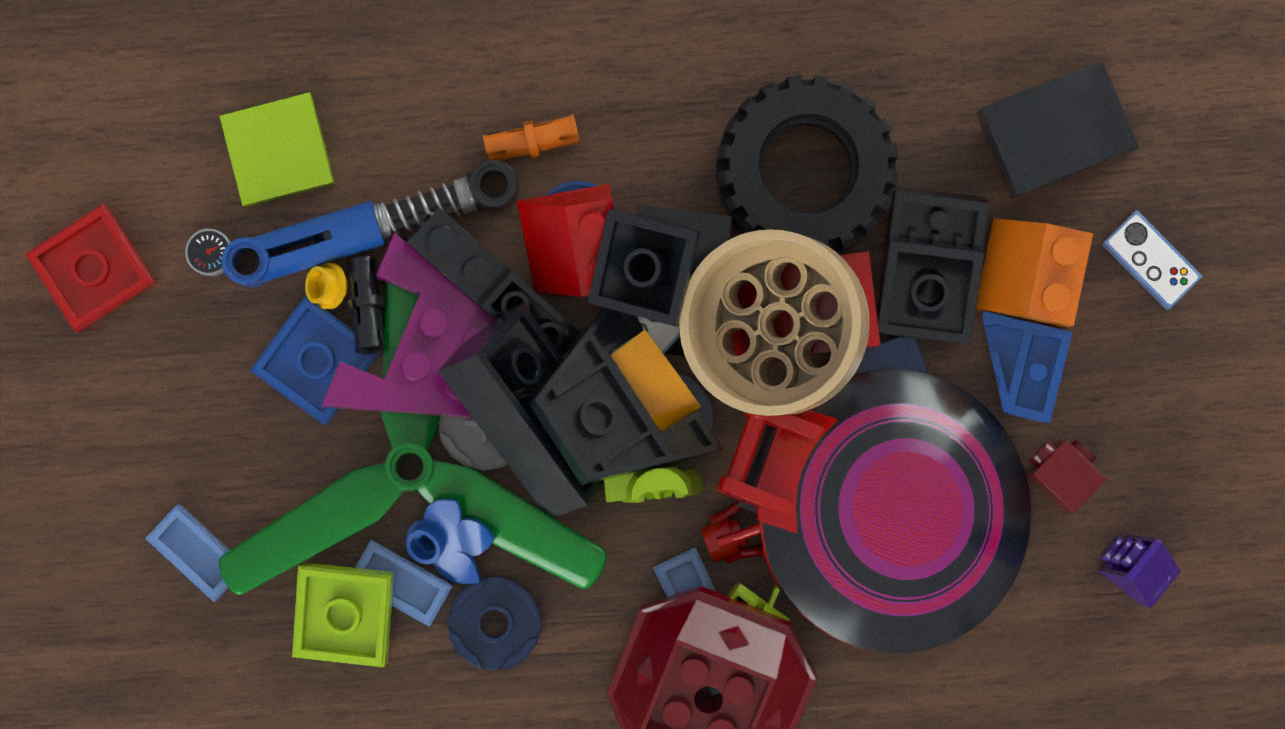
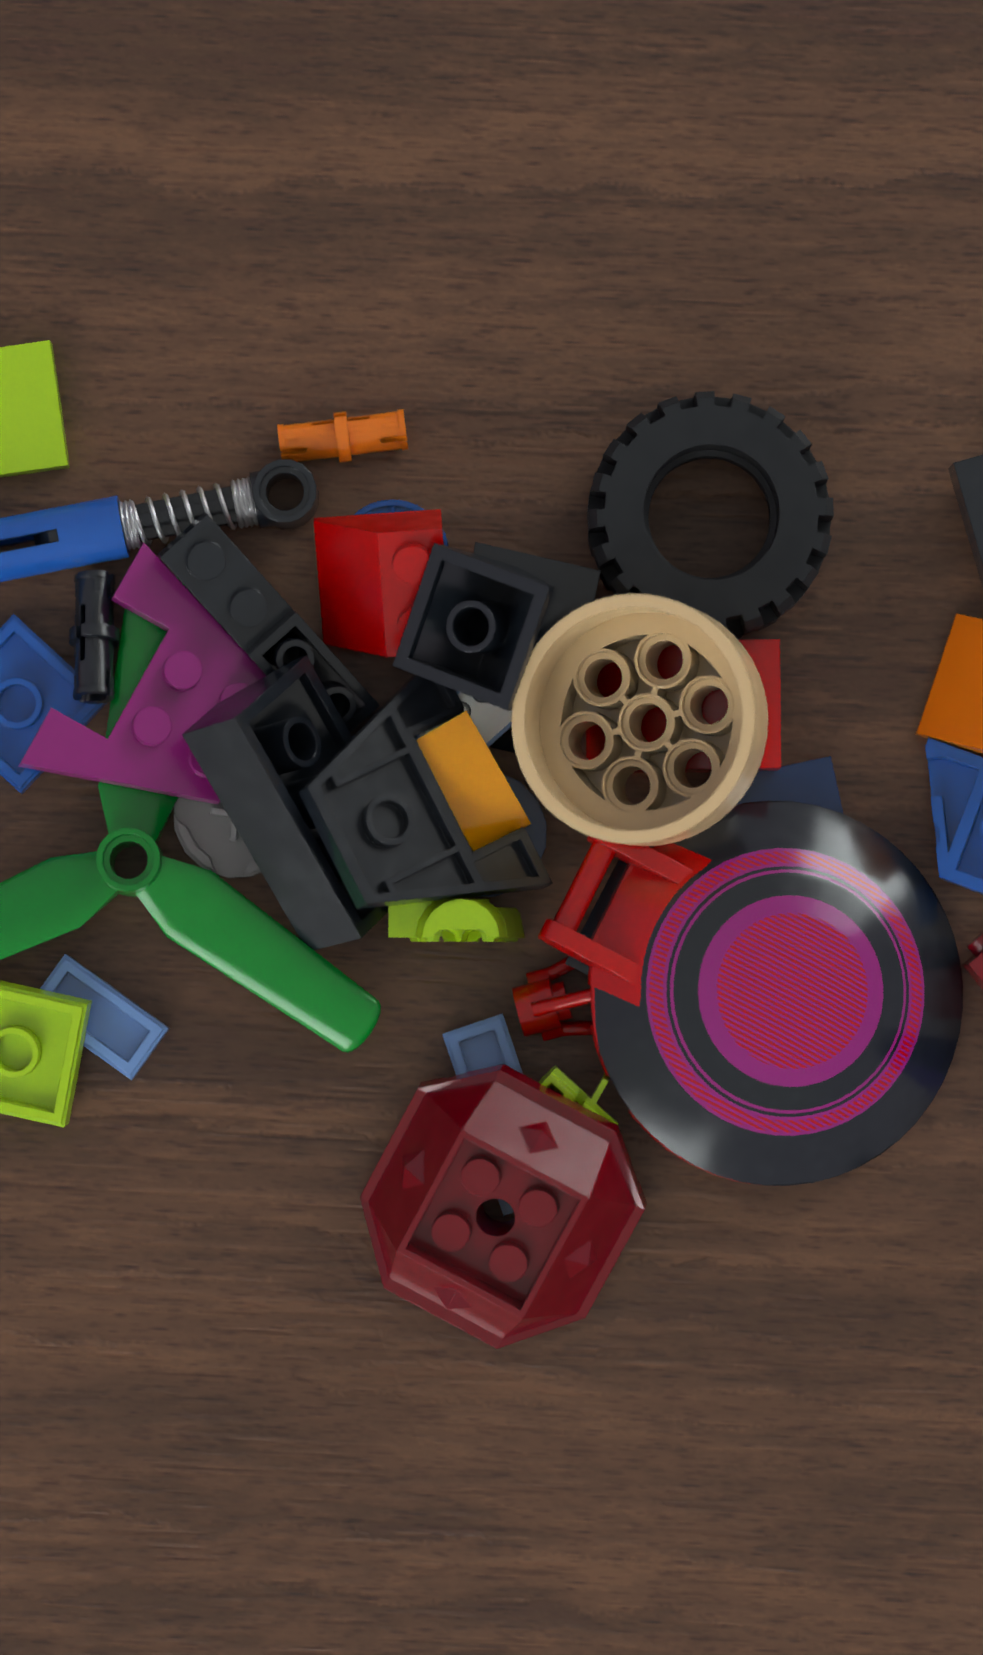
camera: 10 degrees right, 0 degrees up
(326, 285) = (43, 603): yellow plate -> none
(454, 539) = (178, 967): blue plate -> none
(467, 631) = (181, 1091): dark blue tile -> none
(932, 265) = (865, 667): black slope -> none

